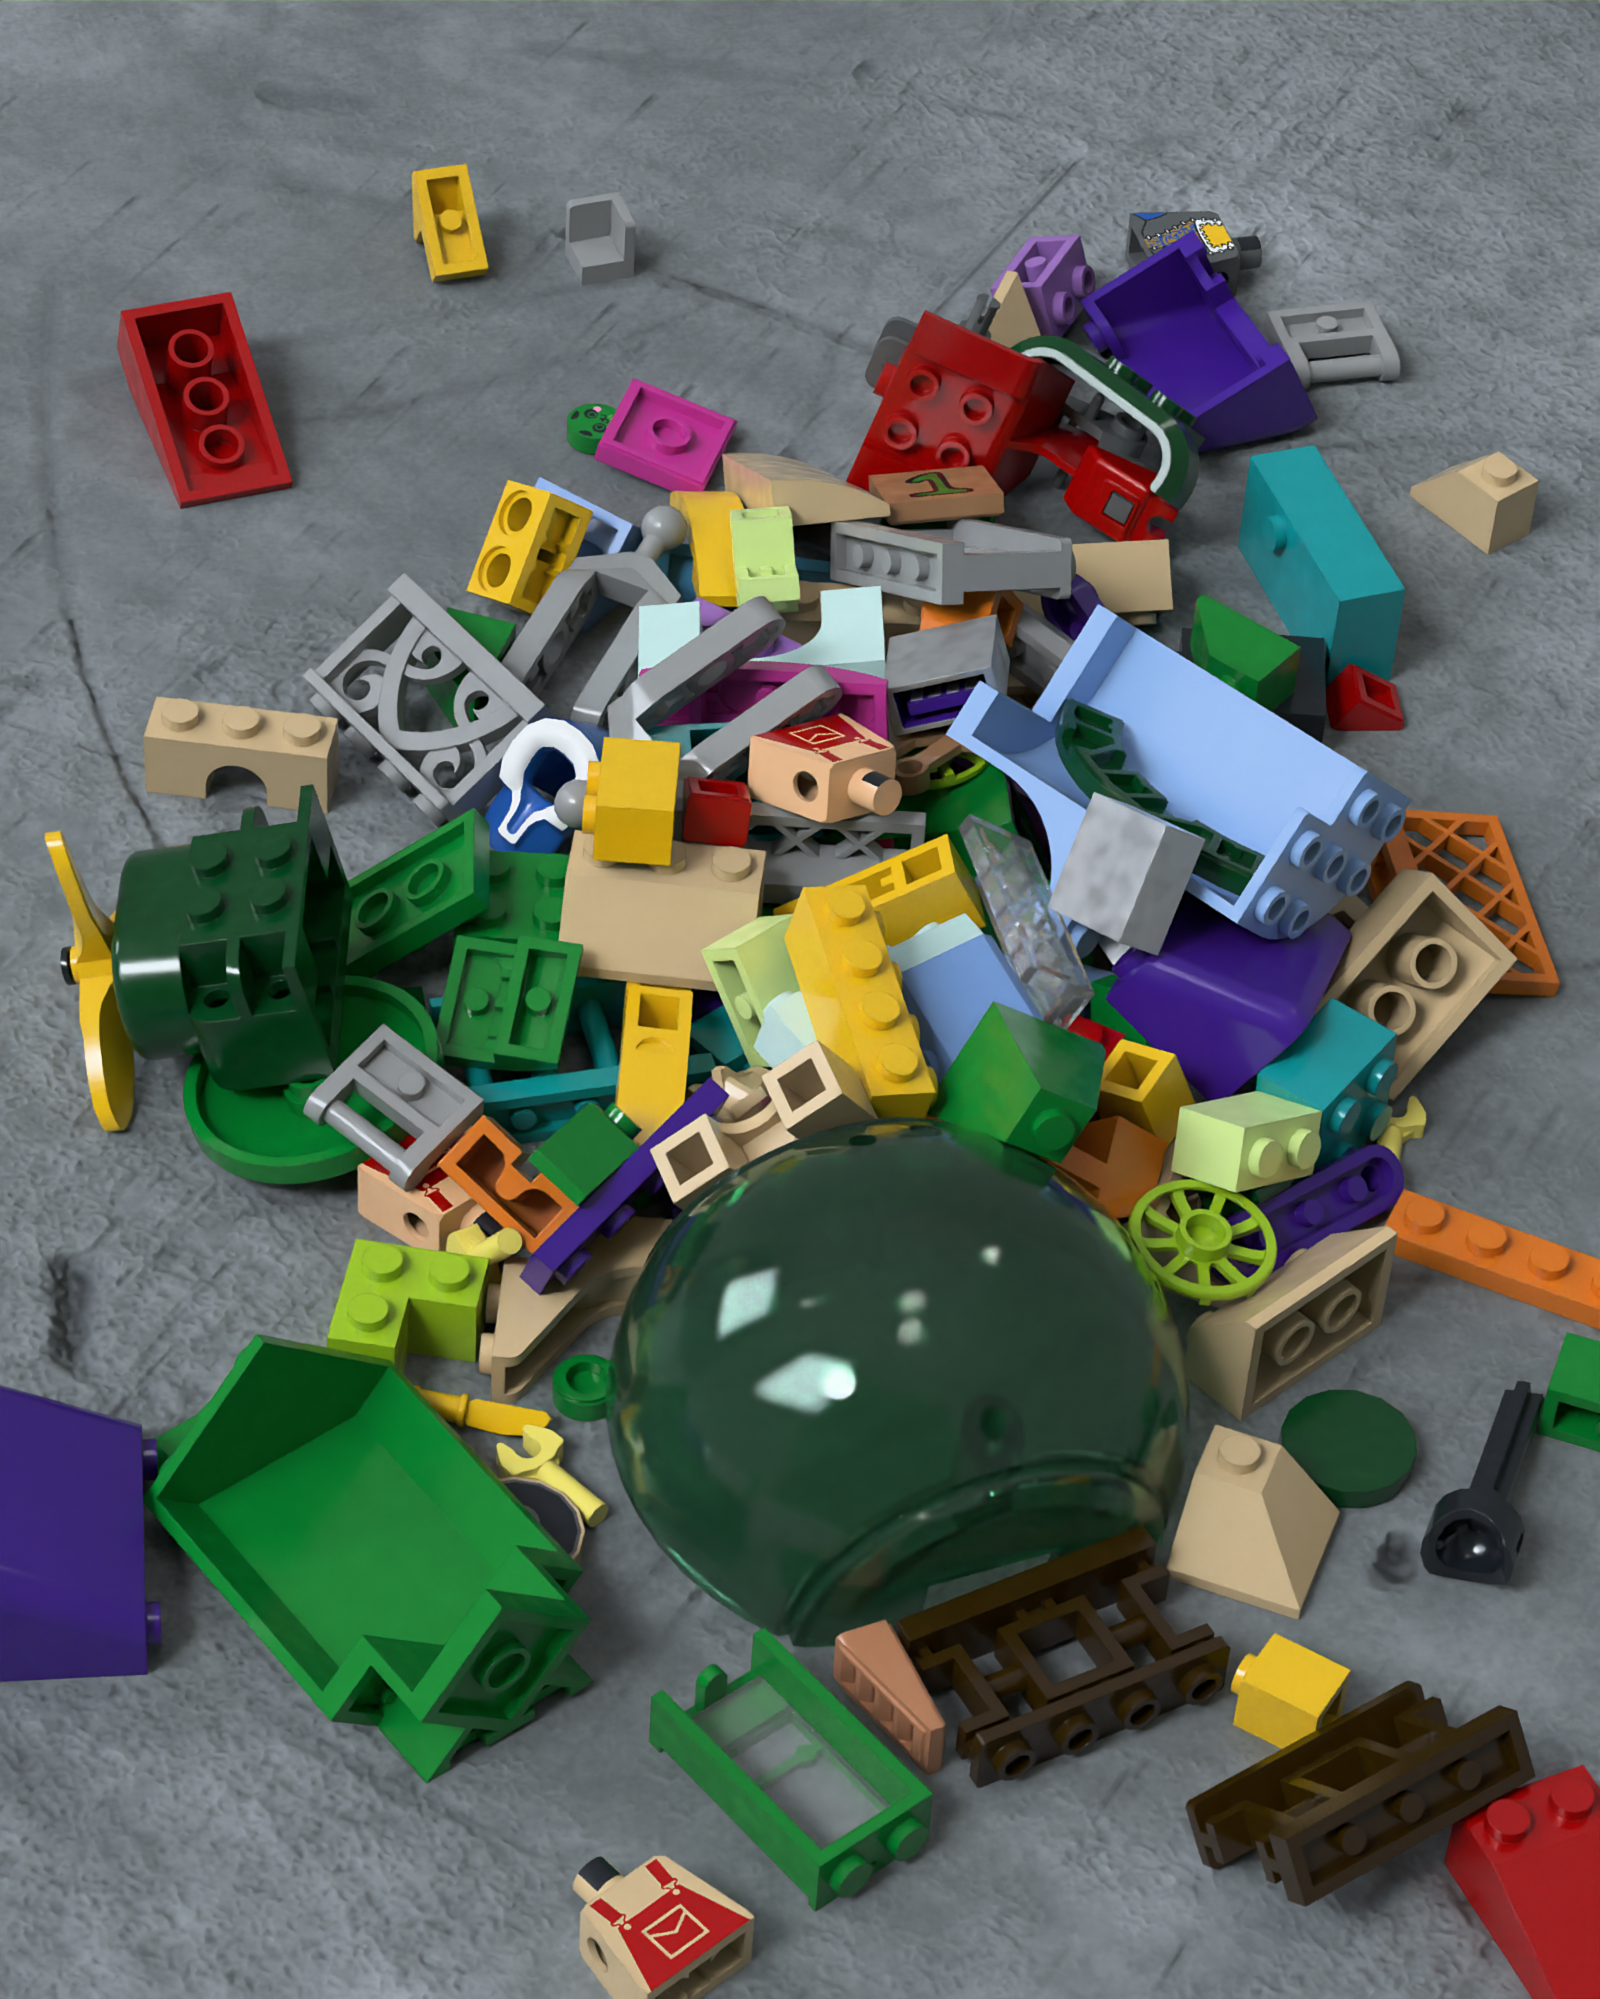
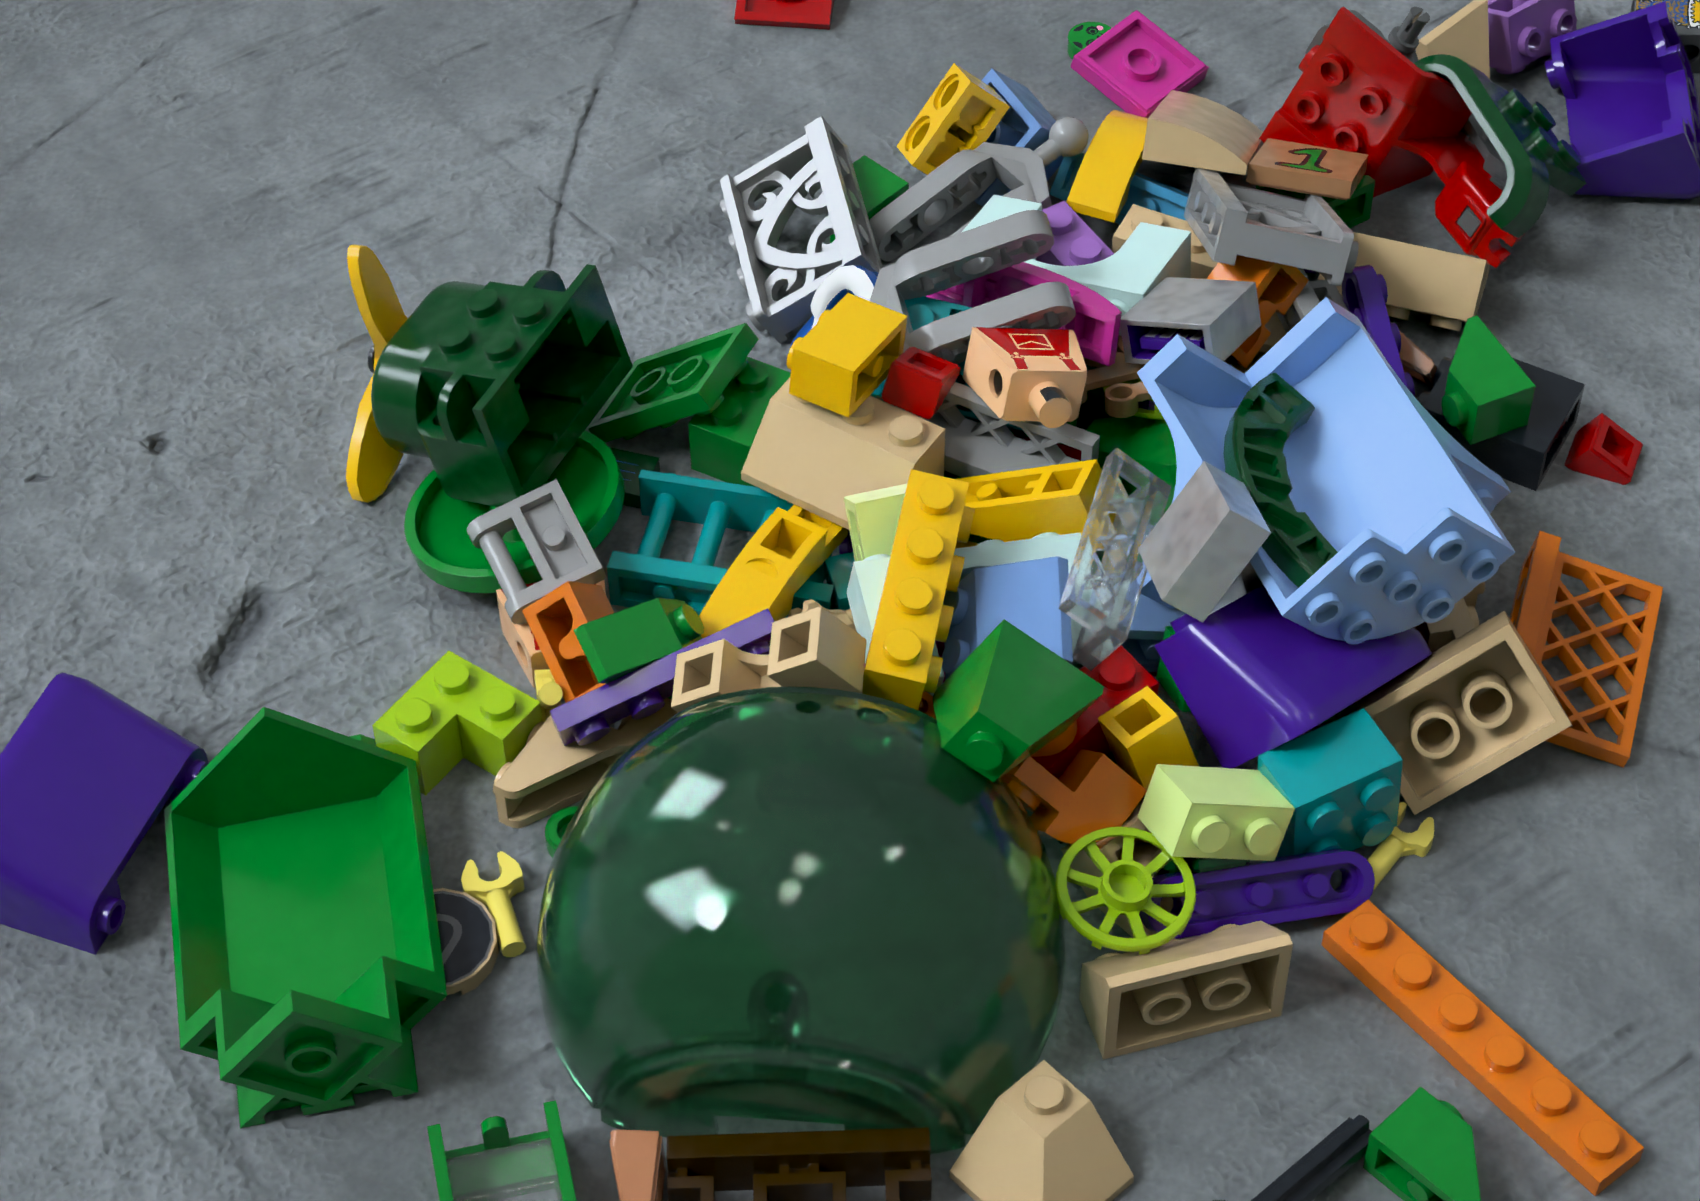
camera: 30 degrees right, 5 degrees up
(284, 749) = (673, 239): tan arch -> none
(484, 1414) = (476, 828): yellow piece -> none
(508, 1003) = (686, 492): green slope -> none
(765, 556) = (1116, 184): yellowish green brick -> none
(1320, 561) = (1620, 318): teal brick -> none
(1351, 1446) = (1176, 1119): dark green tile -> none

